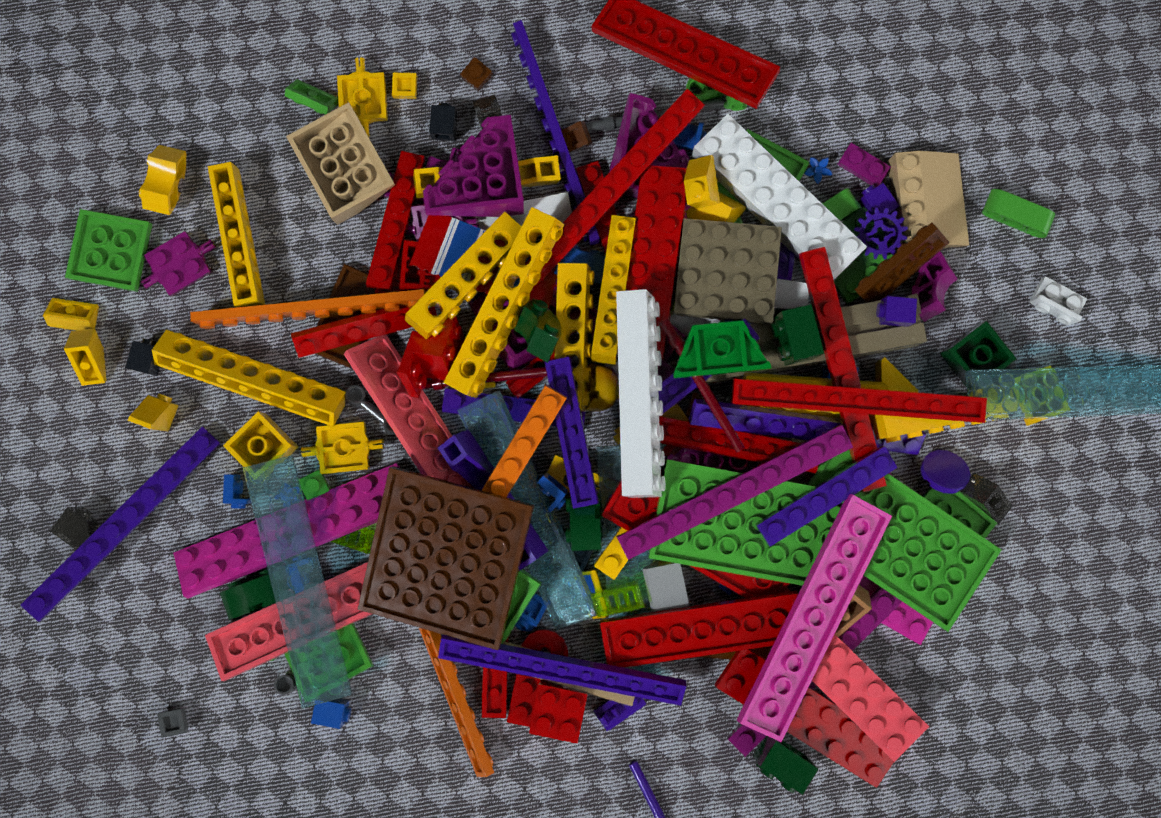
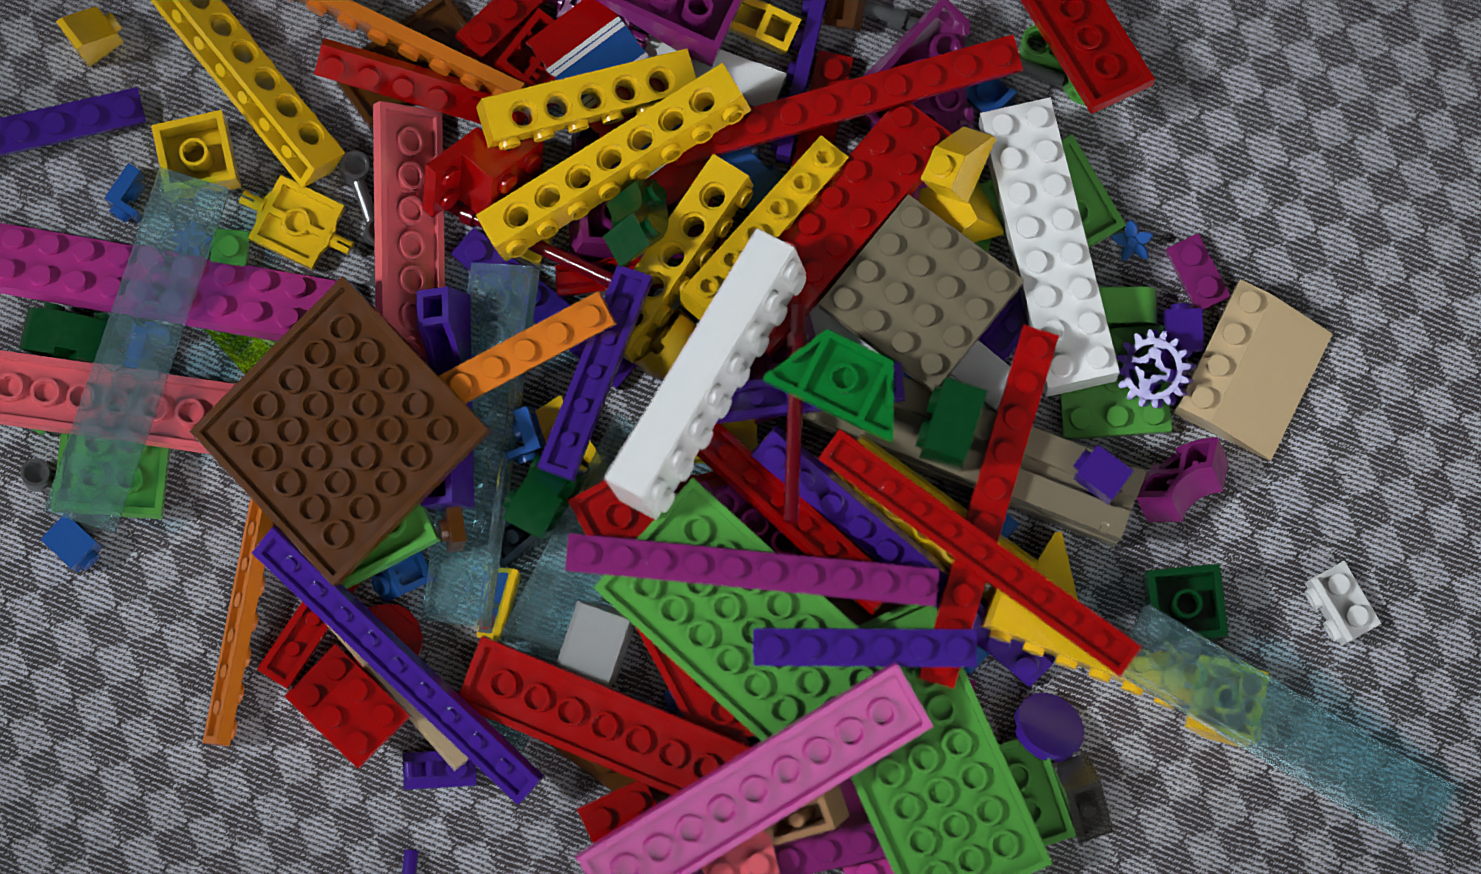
camera: 30 degrees right, 5 degrees down
(544, 571) = (452, 529): none -> reddish brown plate
(612, 558) = (547, 567): yellow plate -> none
(619, 608) = (551, 630): clear neon green slope -> none
(903, 264) = (1155, 424): reddish brown plate -> none
(1018, 213) = (1360, 457): bright green beam -> none

